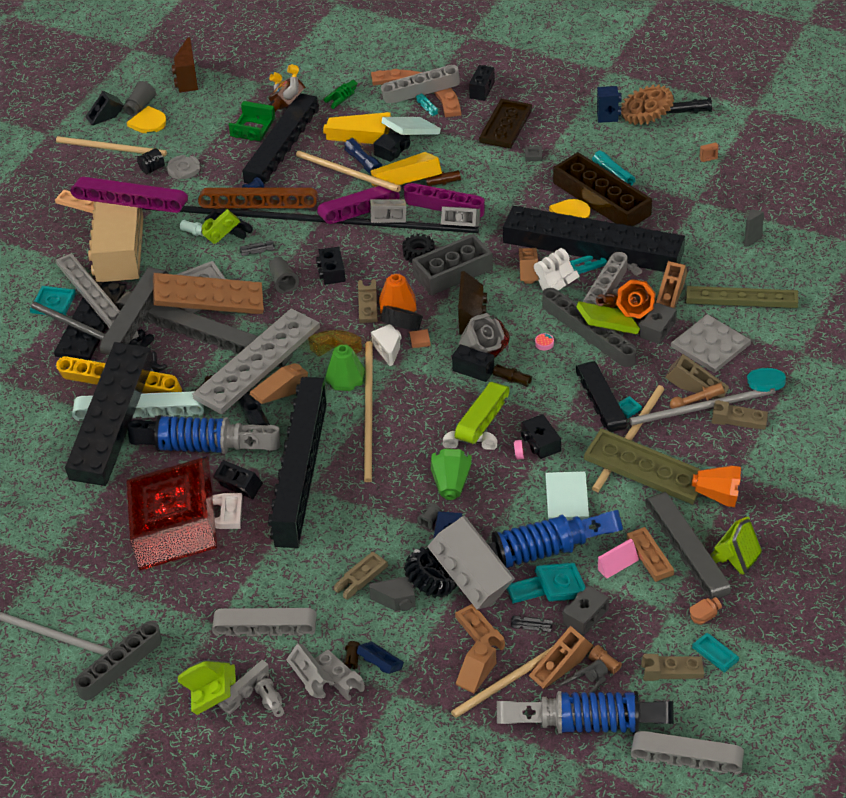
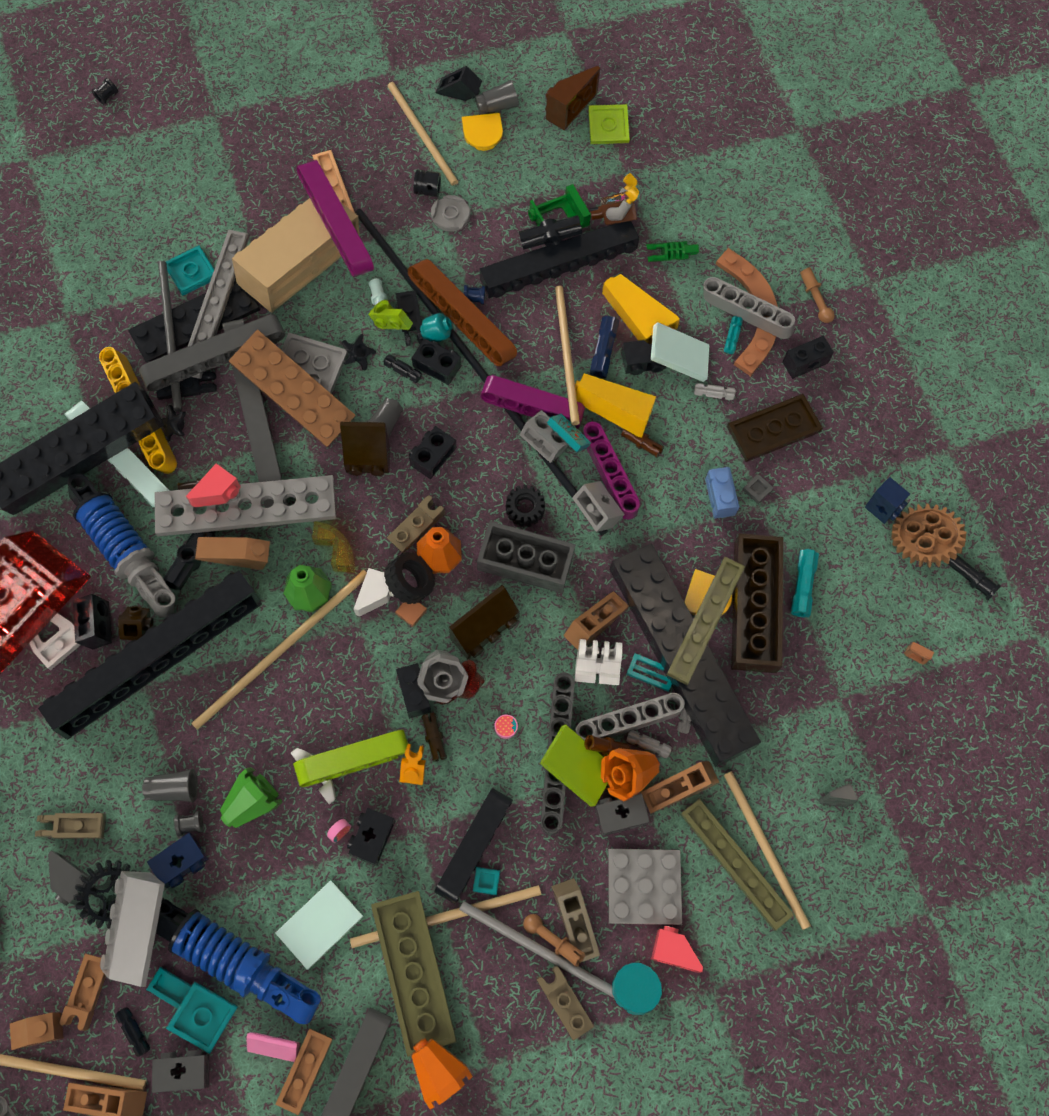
camera: 40 degrees right, 25 degrees up
(220, 257) = (358, 352): none -> black animal
(222, 68) = (608, 124): none -> lime plate
(233, 355) = (214, 488): none -> coral slope
(254, 213) = (436, 327): none -> teal head
(264, 124) = (550, 232): none -> black piece
(265, 460) = (134, 622): none -> dark brown brick
(275, 228) = (433, 365): none -> black brick
(293, 282) = (365, 448): none -> dark brown slope
(396, 508) = (171, 786): none -> dark grey plant
(401, 195) = (568, 432): none -> teal tile
(440, 55) = (825, 314): none -> medium nougat pin
(451, 133) = (714, 391): none -> light grey axle
(517, 165) = (722, 492): none -> medium blue brick
(521, 392) = (412, 766): none -> light orange plate
(588, 209) = (705, 621): none -> olive tile
(744, 281) = (767, 851): none -> tan piece
(764, 350) = (675, 950): none -> coral slope

